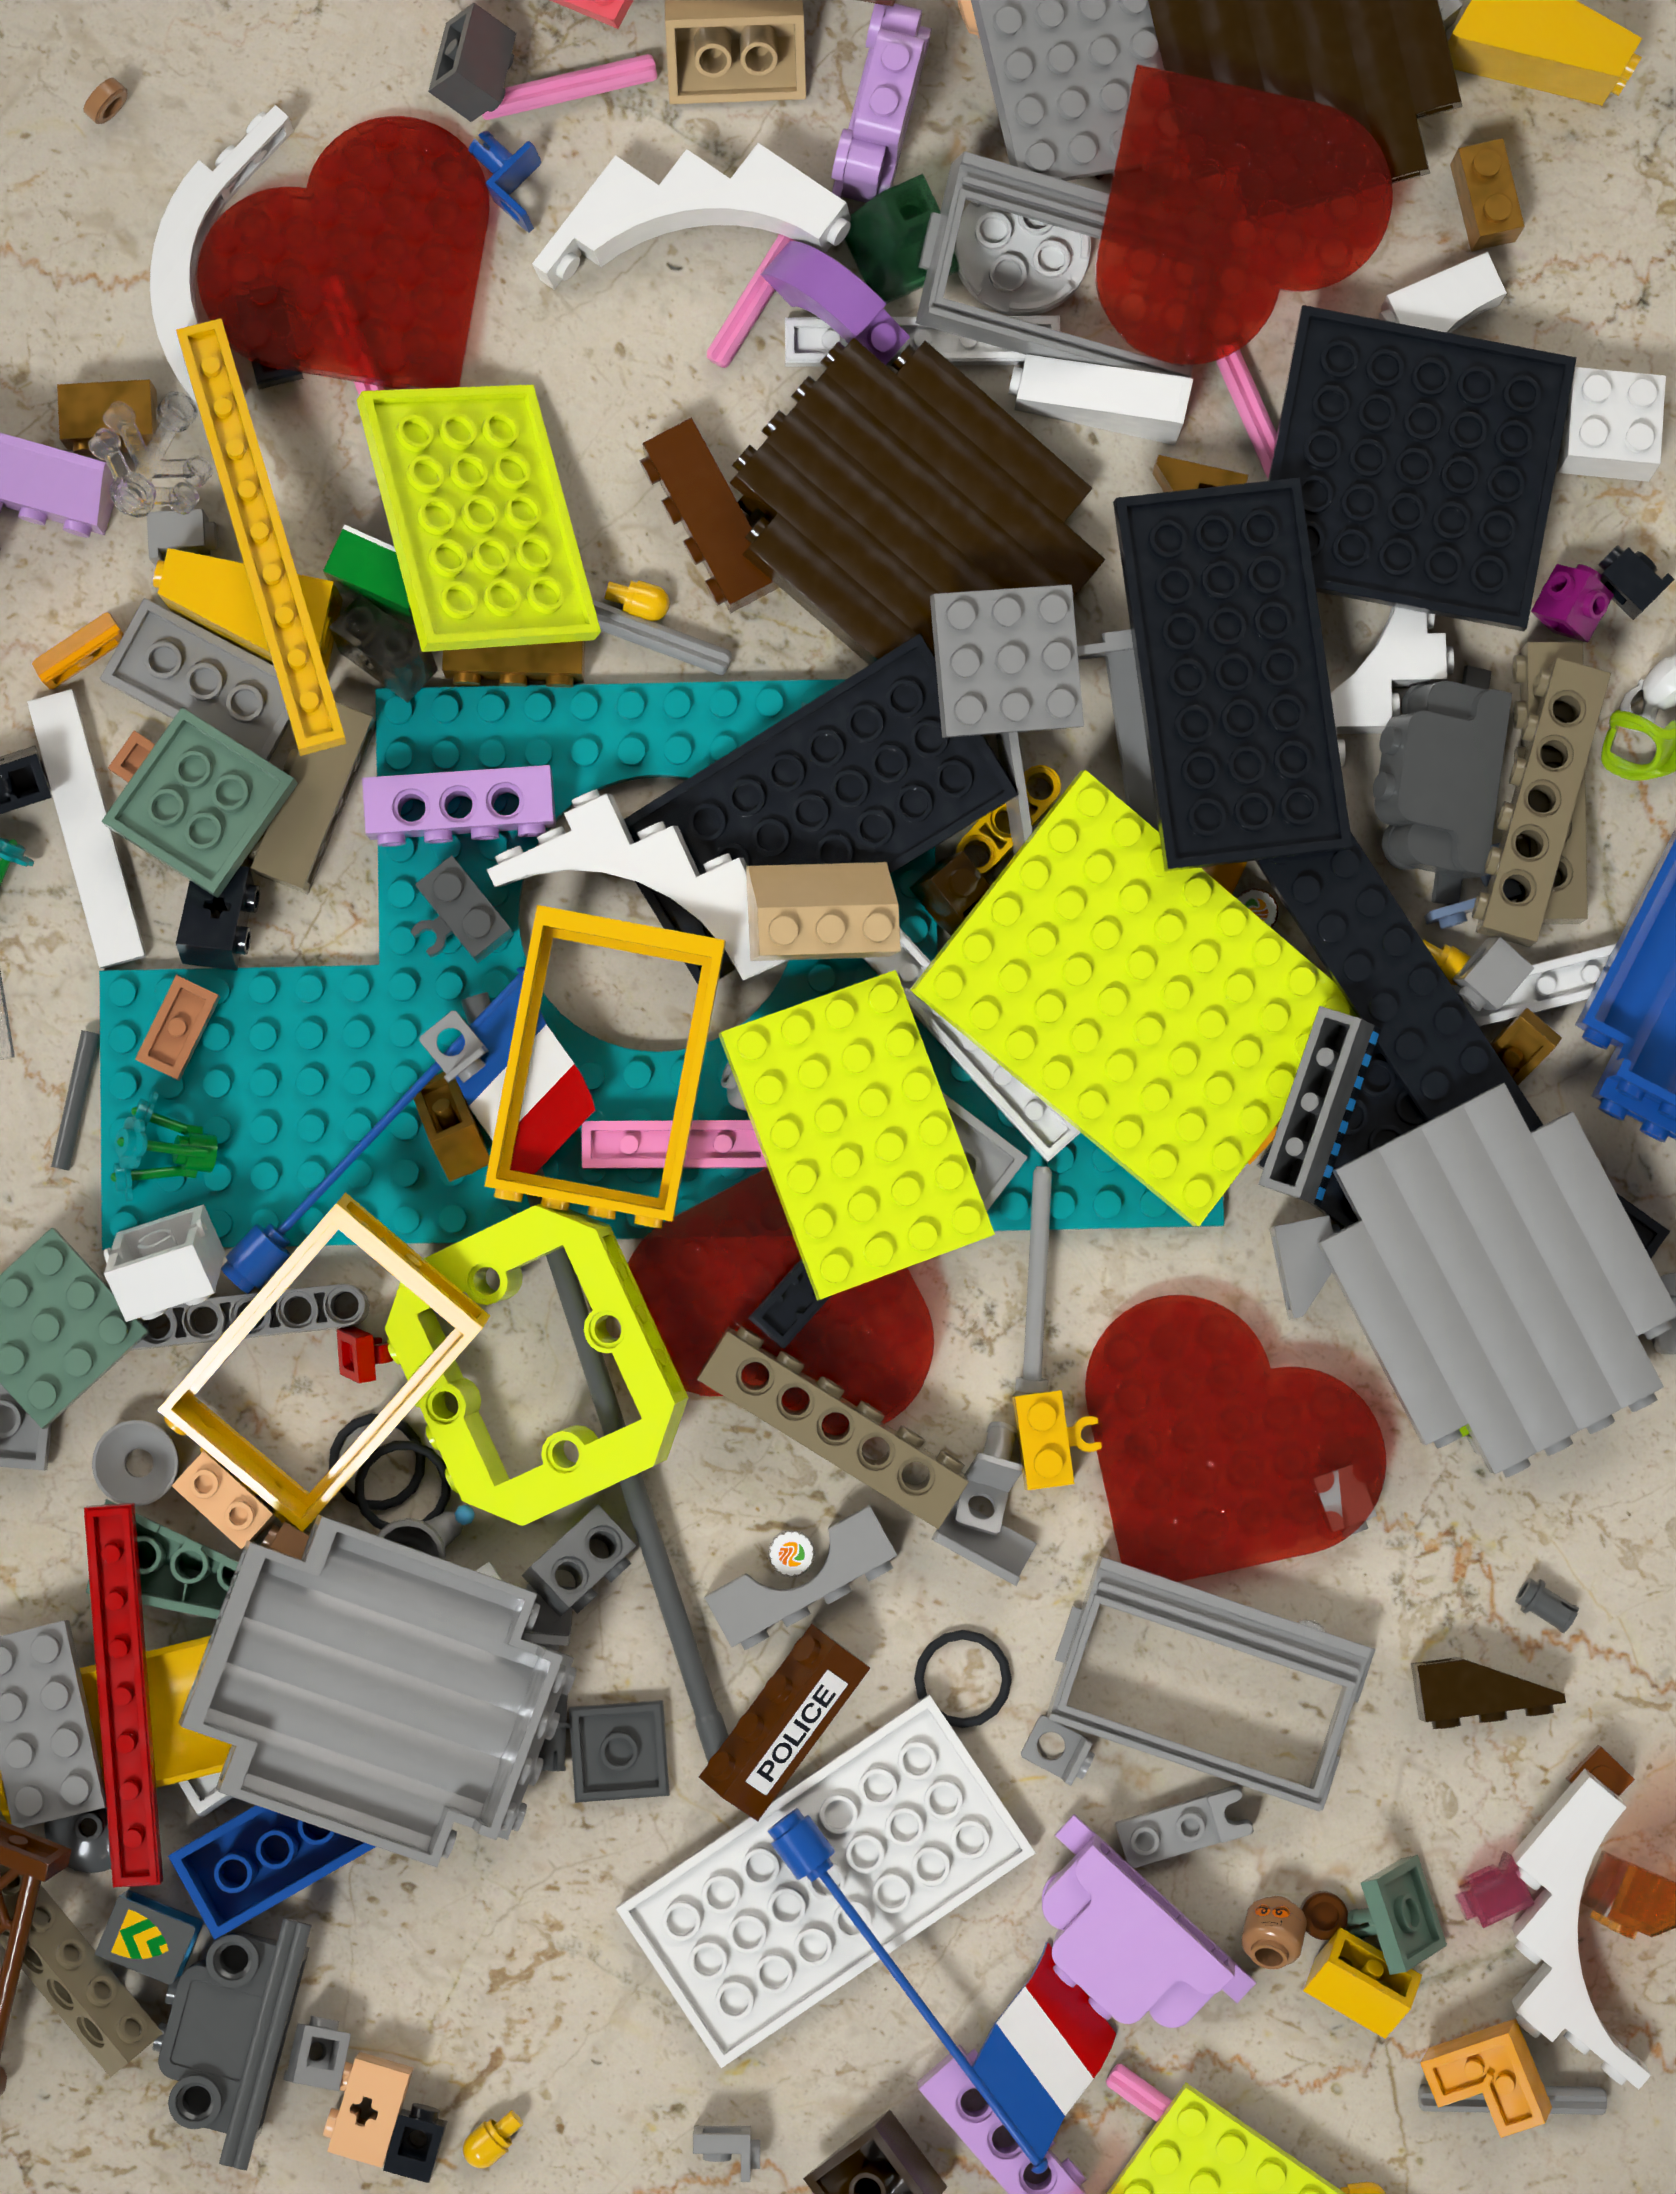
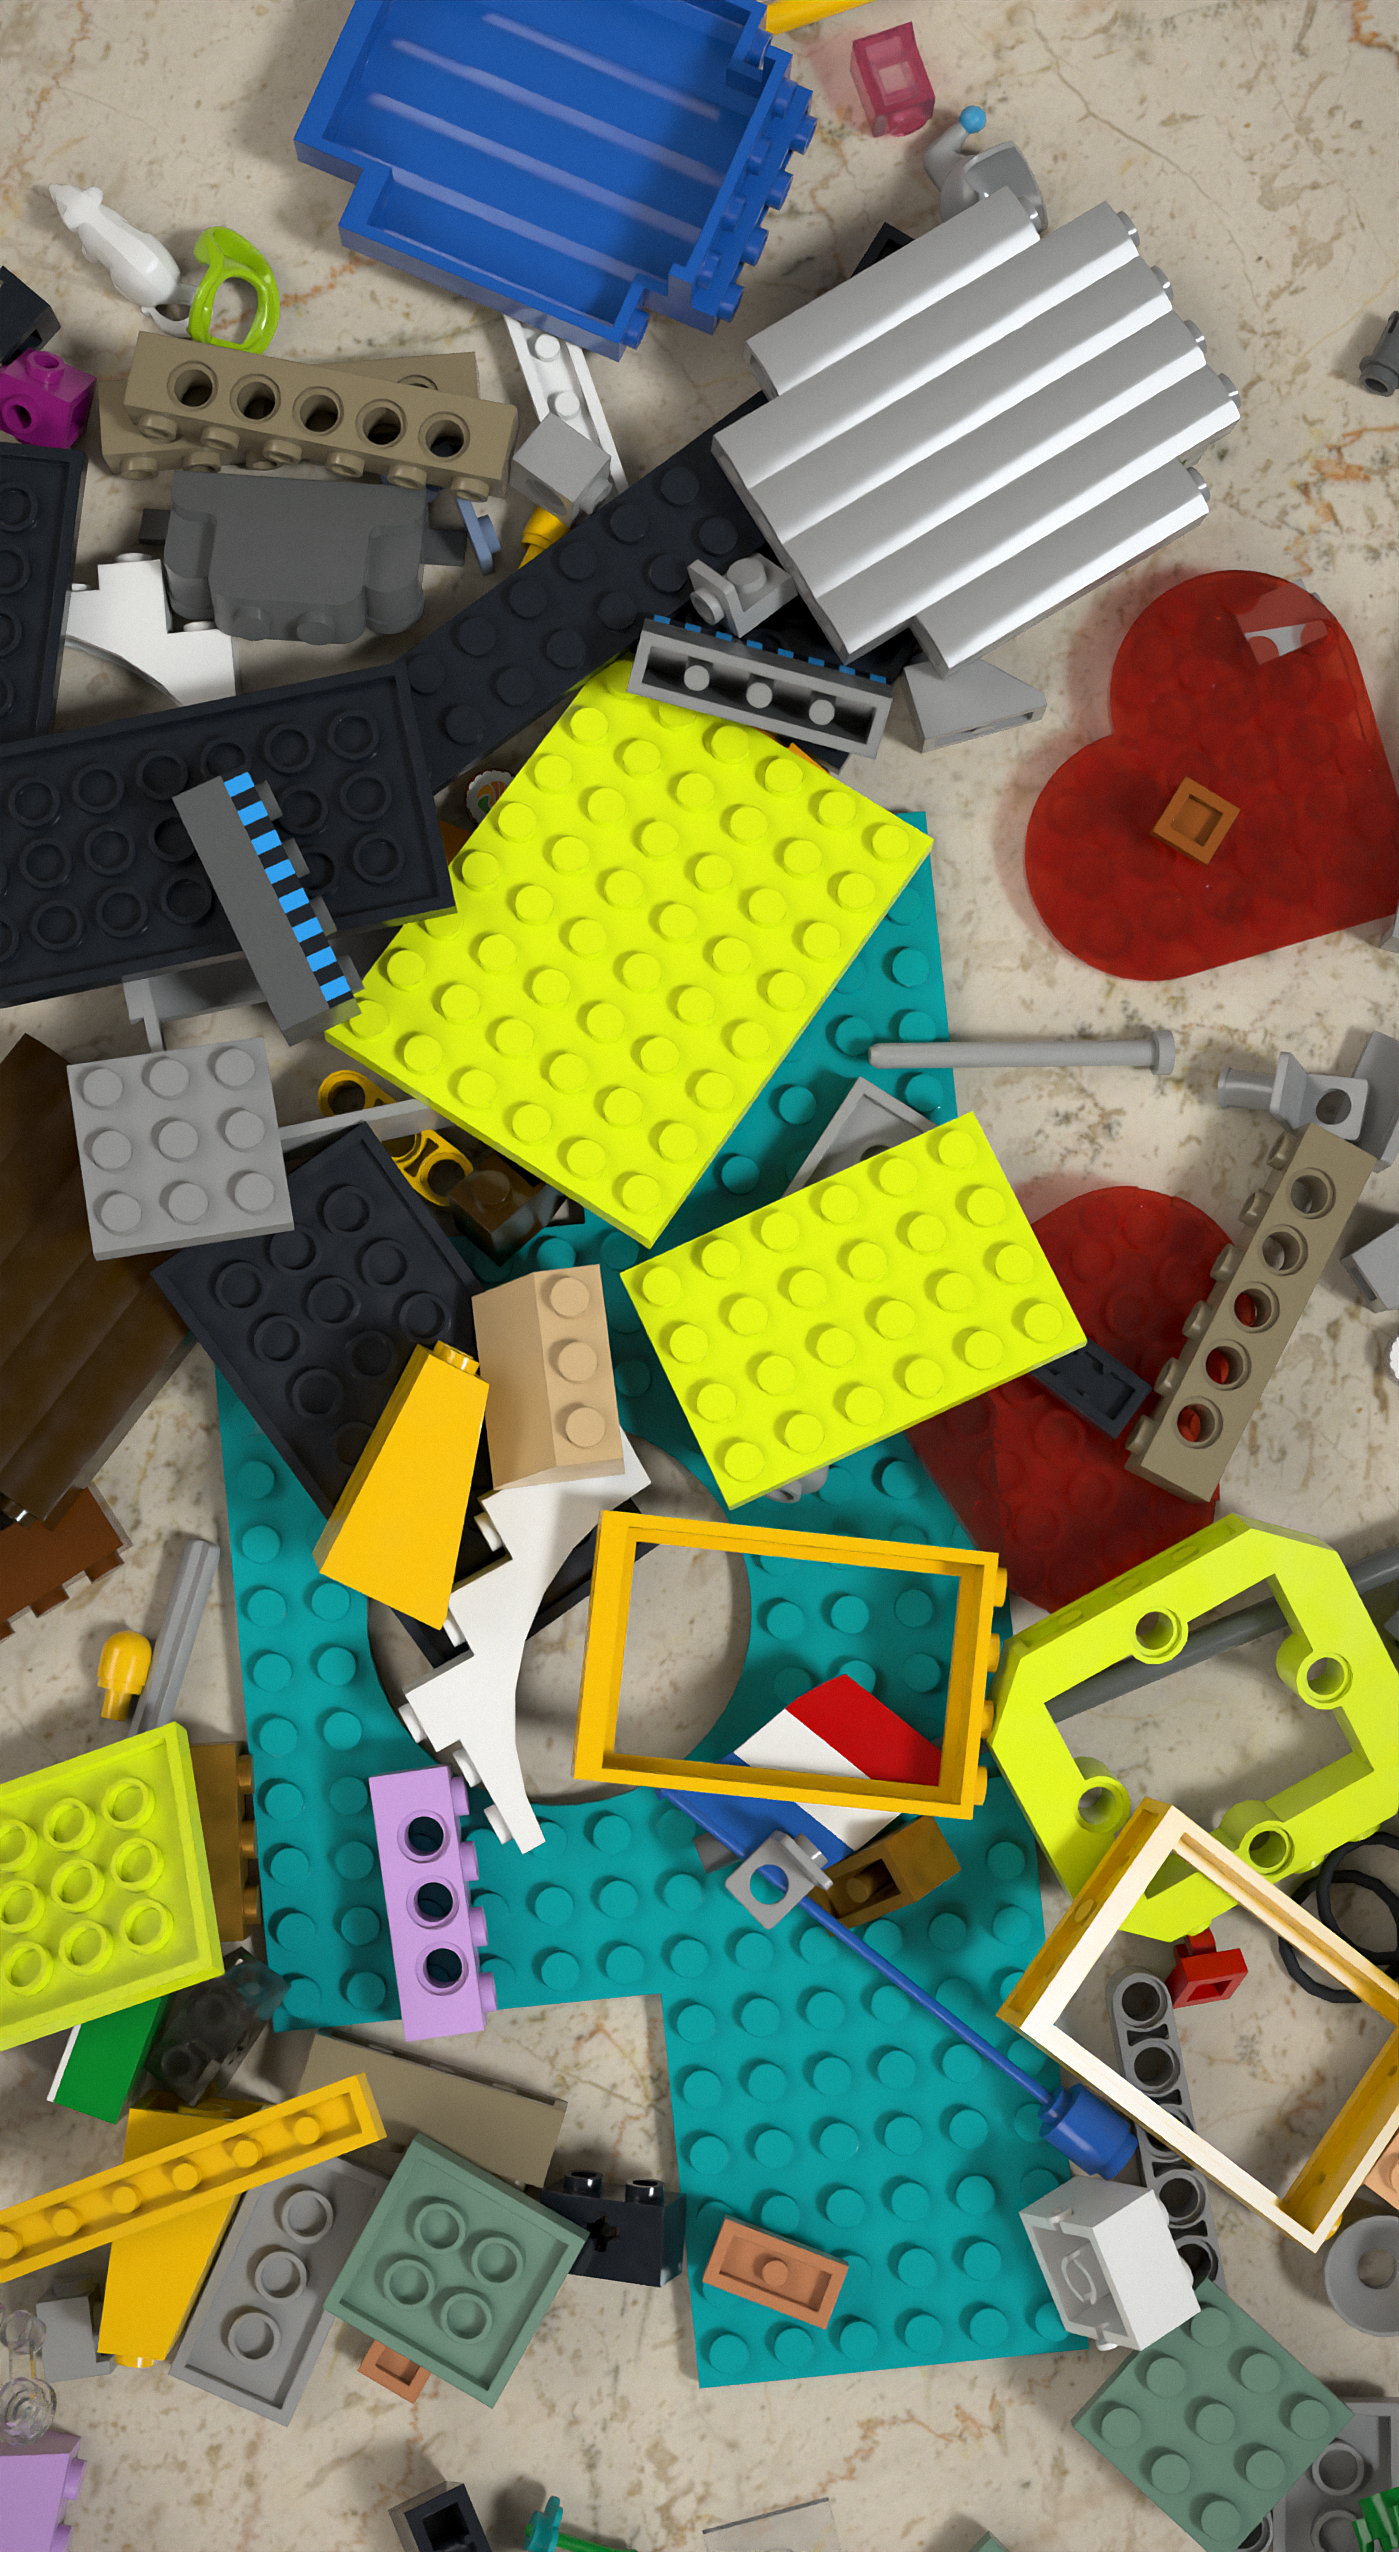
camera: 85 degrees left, 0 degrees up
(75, 1100) = (882, 2405): dark grey bar -> none
(78, 651) = (250, 2460): light orange slope -> none
(87, 839) = (525, 2418): white tile -> none
(192, 1151) = (949, 2235): plant -> none
(461, 912) = (583, 1885): dark grey brick -> none
(646, 1145) = (882, 1598): bright pink plate -> none
(746, 804) = (410, 1491): none -> yellow slope
(1026, 1111) = (800, 1079): white tile -> none
(1047, 1440) = (1236, 1024): yellow brick -> none
(1175, 734) = (268, 906): none -> dark grey brick
(1197, 1418) = (1195, 821): none -> dark orange plate
(1390, 1100) = (741, 596): none -> light grey bracket
(1524, 1044) = (649, 424): pearl gold slope -> none

